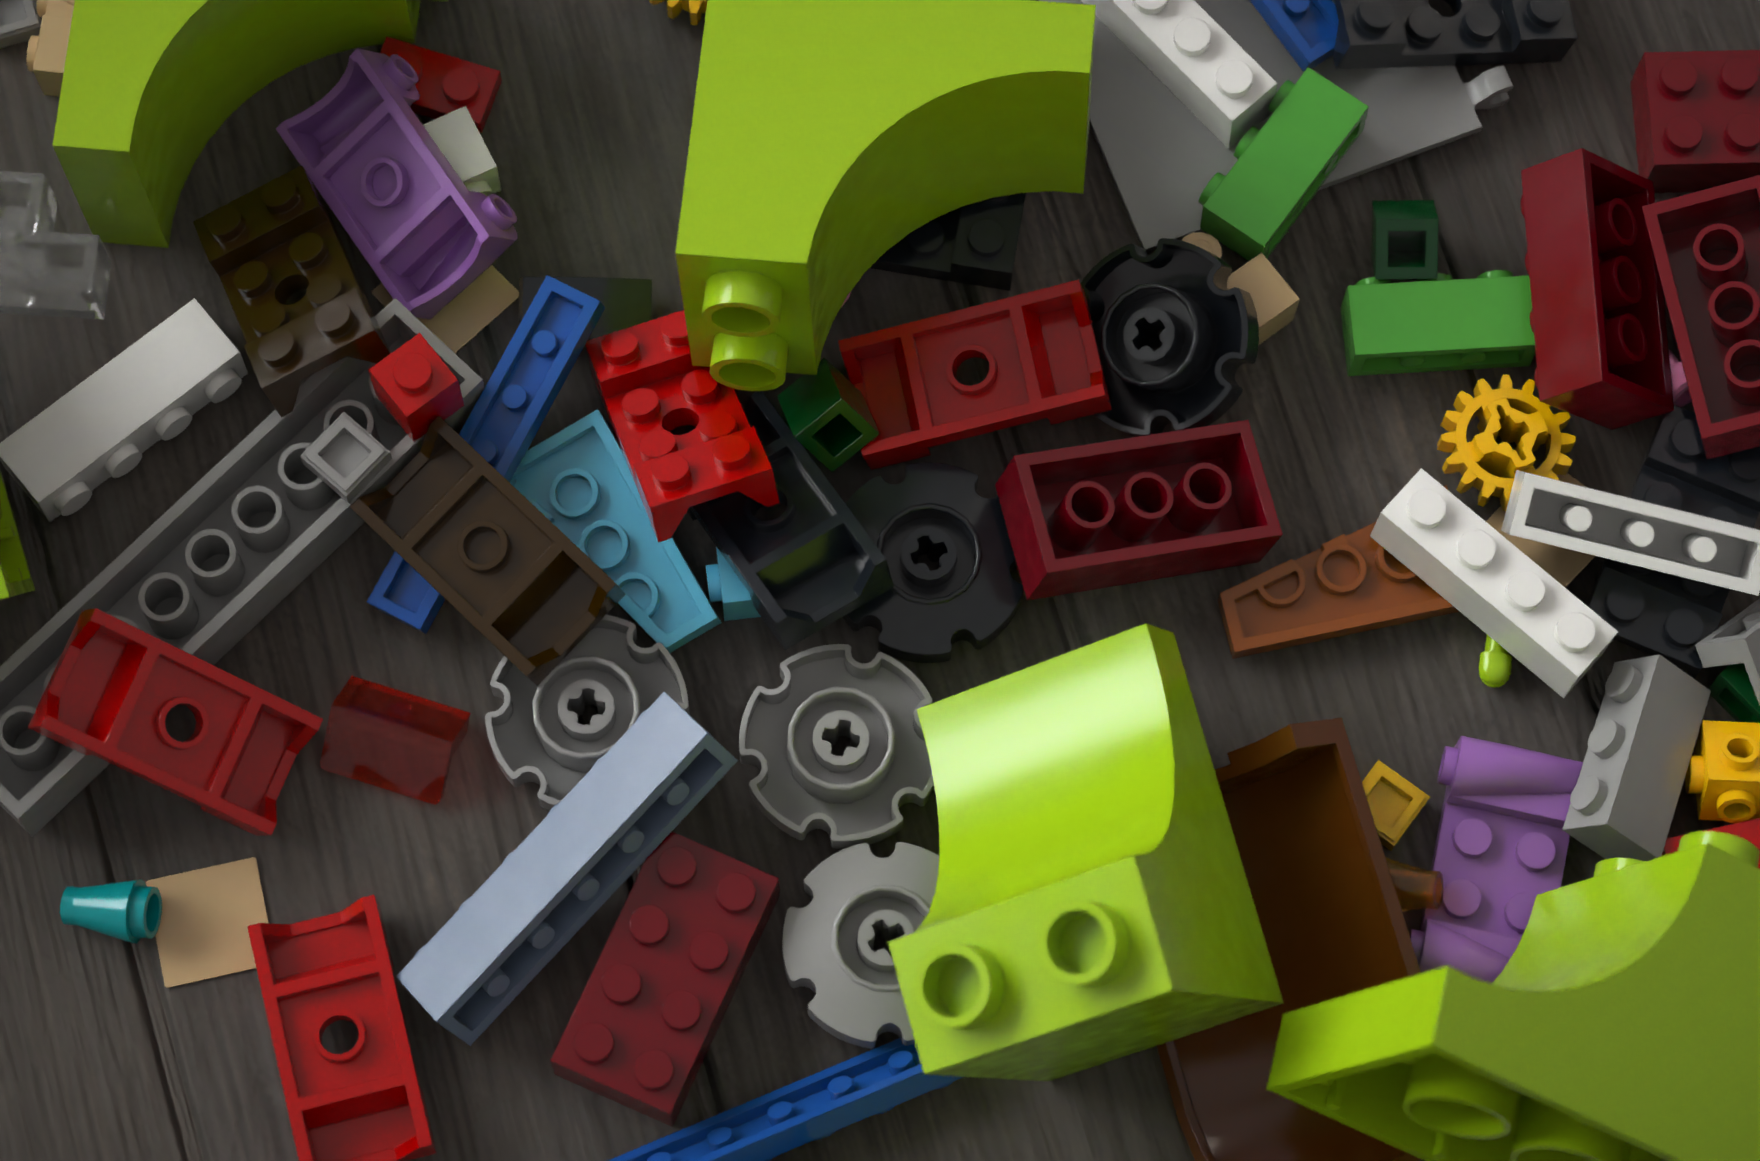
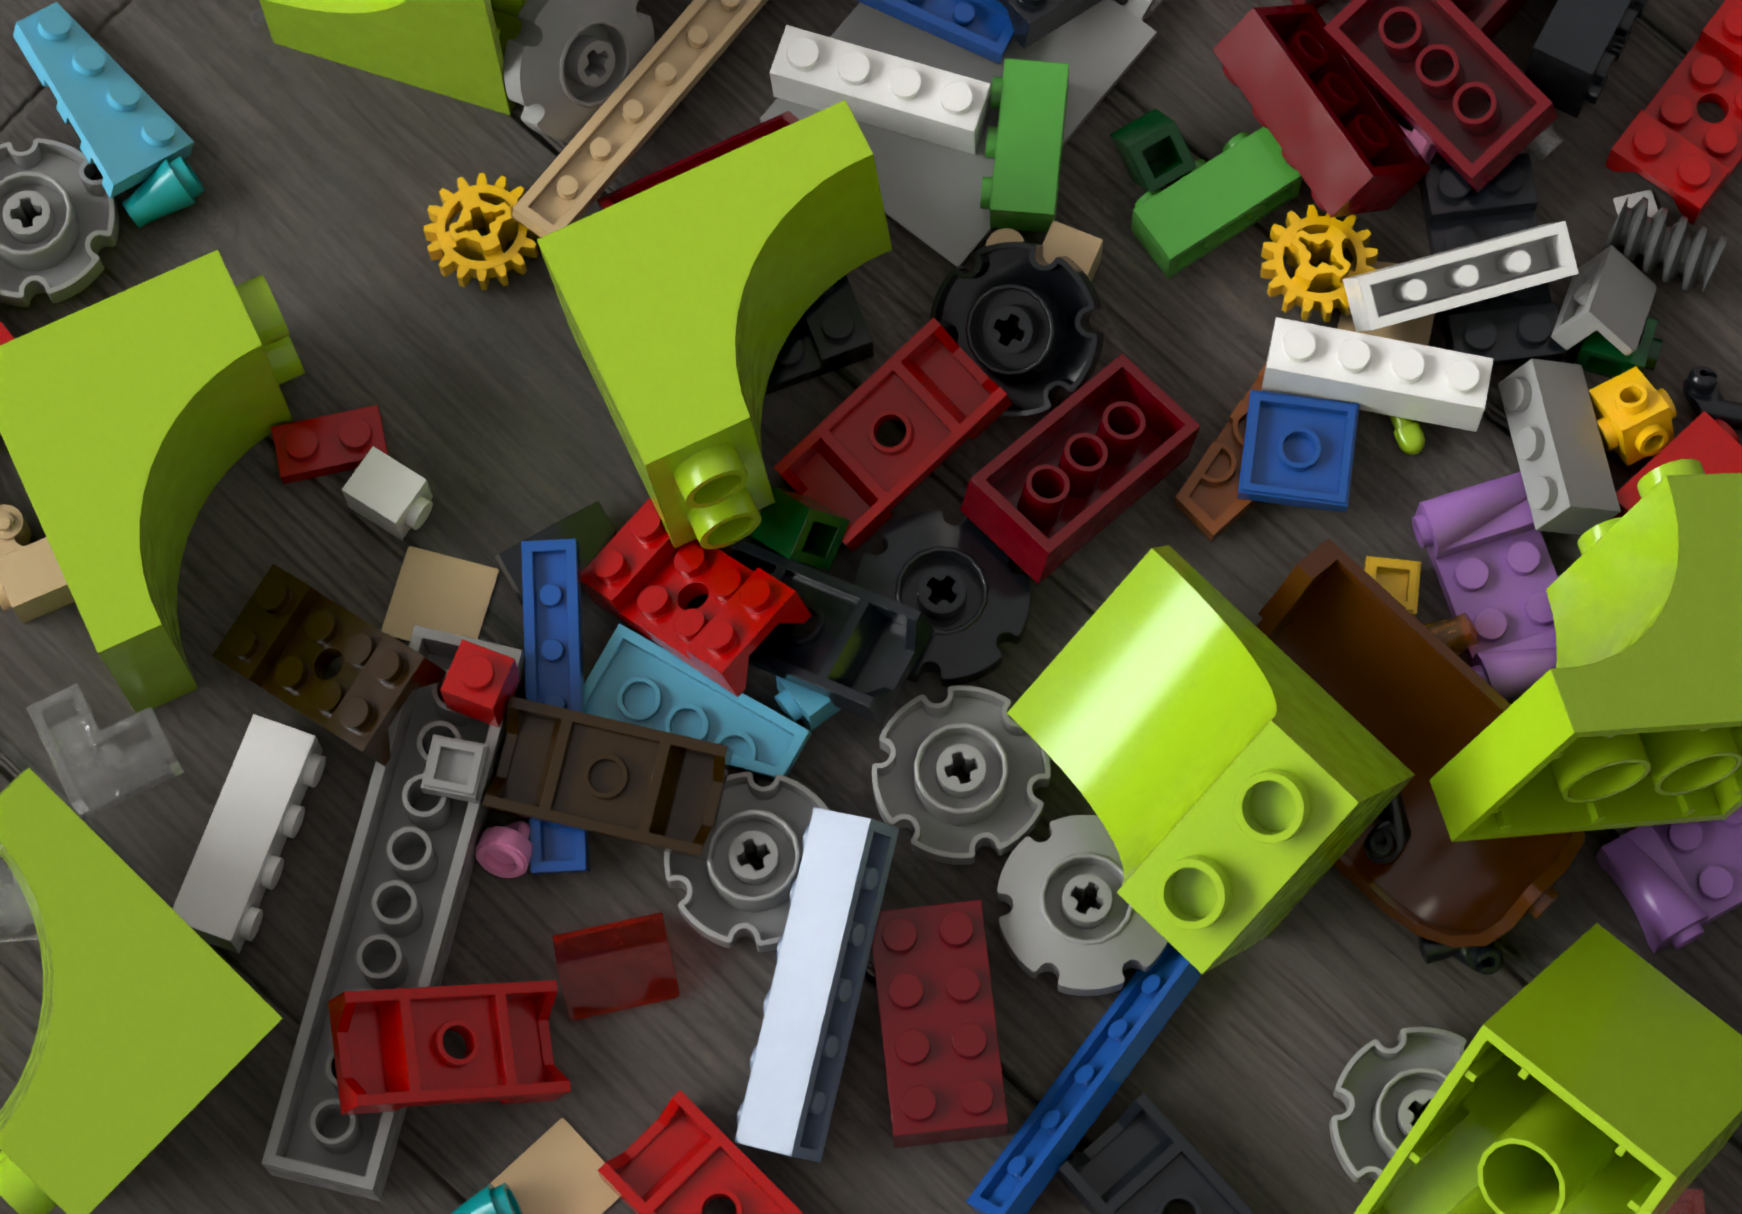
camera: 25 degrees left, 0 degrees up
(355, 565) = (505, 849): none -> bright pink tile
(396, 186) = (355, 537): medium lavender piece -> none
(1233, 1048) = (1389, 833): none -> black arm
(1369, 616) = (1298, 451): none -> blue tile

